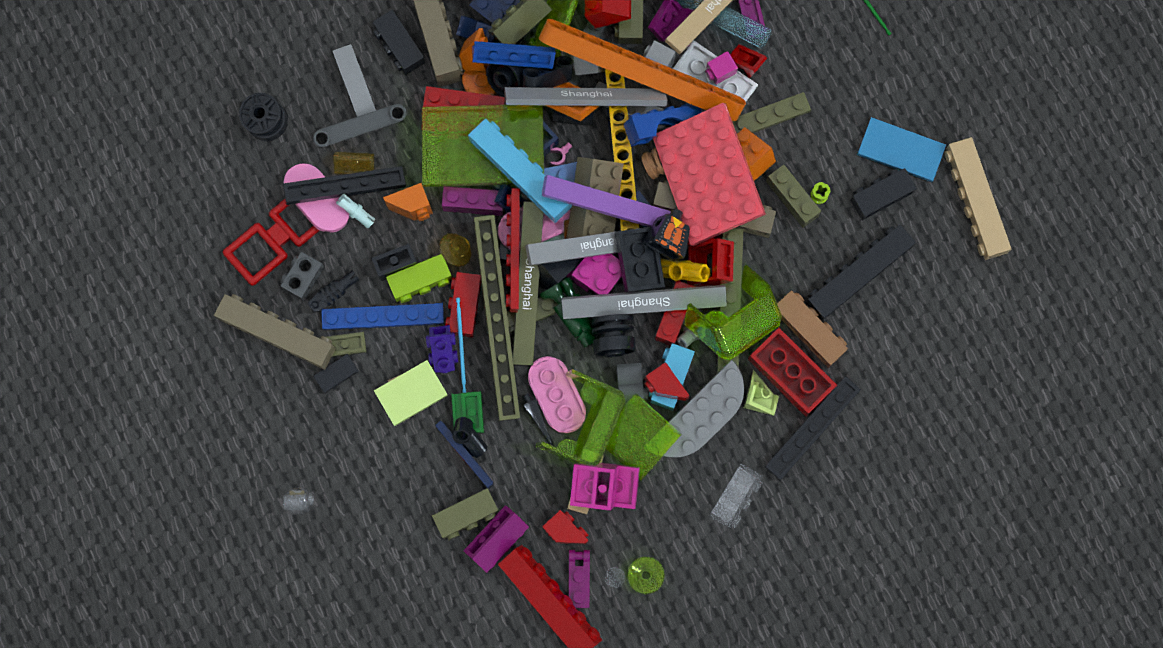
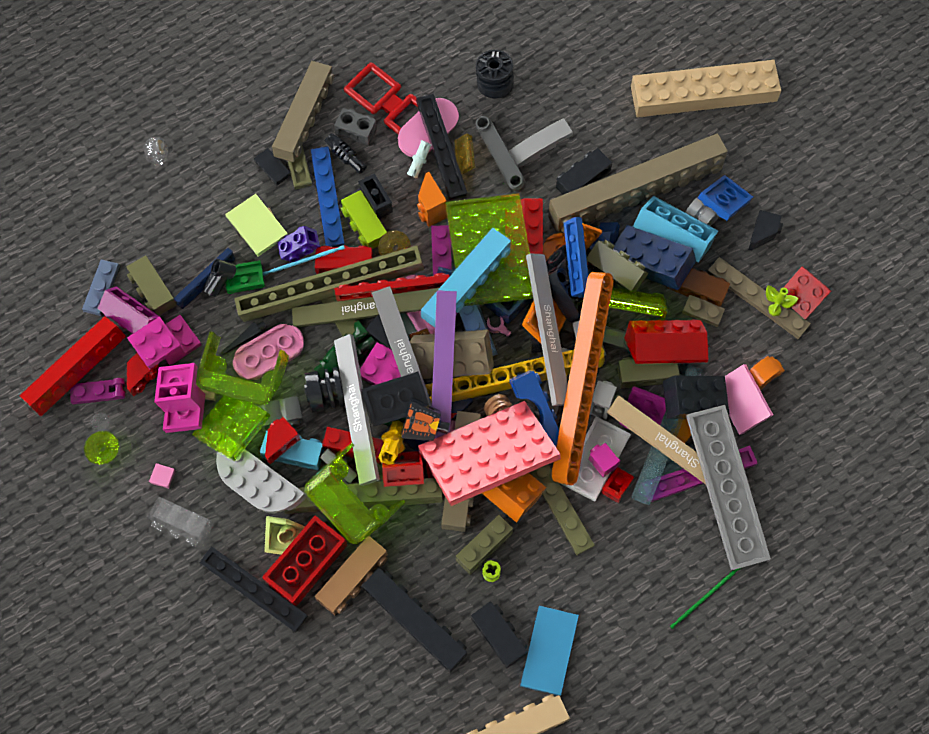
camera: 85 degrees right, 10 degrees down
(457, 571) = (102, 281): none -> sand blue plate
(535, 501) = (164, 341): none -> dark pink bracket
(682, 514) = (162, 476): none -> bright pink tile

